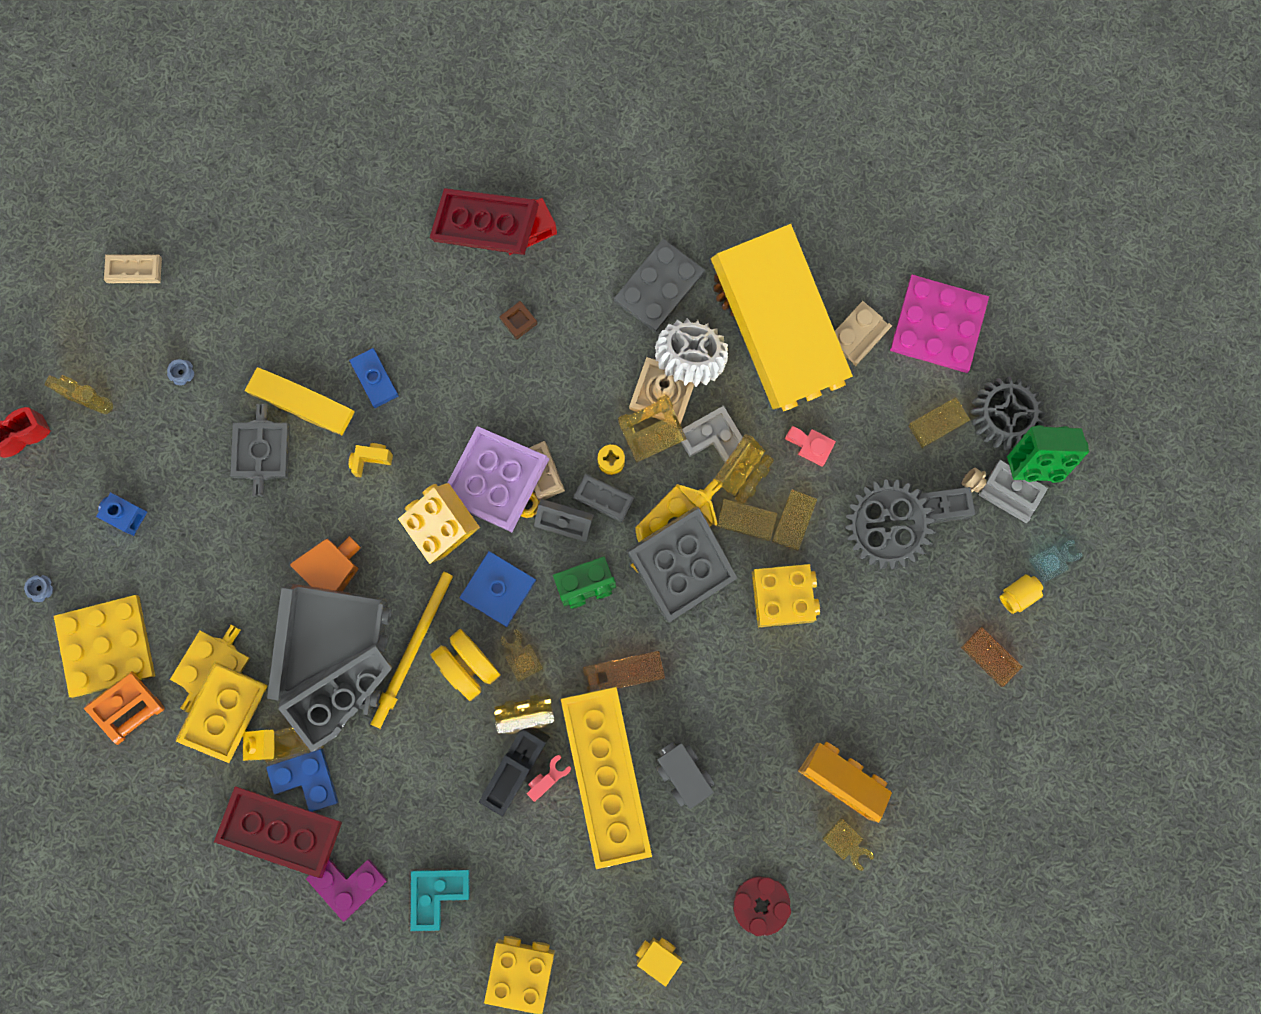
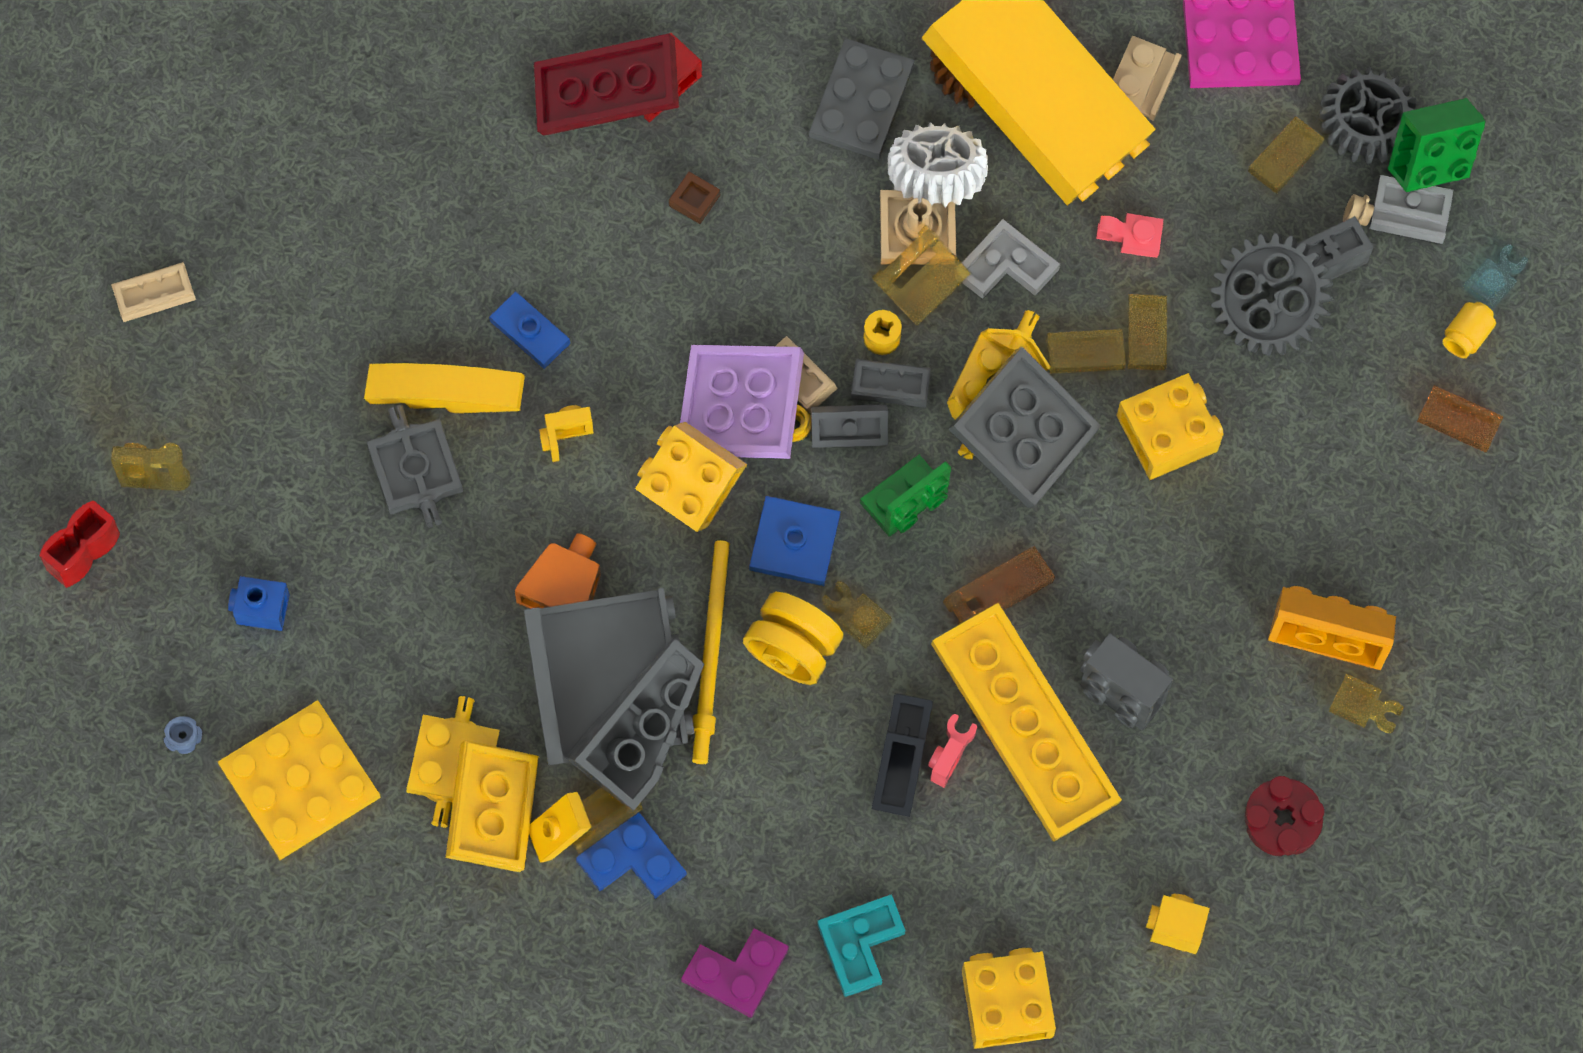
camera: 20 degrees left, 10 degrees down
(119, 700) = (349, 836): orange plate -> none
(174, 368) = (268, 393): sand blue plate -> none
(278, 832) = (624, 929): dark red plate -> none
(523, 714) = (901, 669): clear yellow plate -> none
(740, 465) = (1052, 284): clear yellow plate -> none

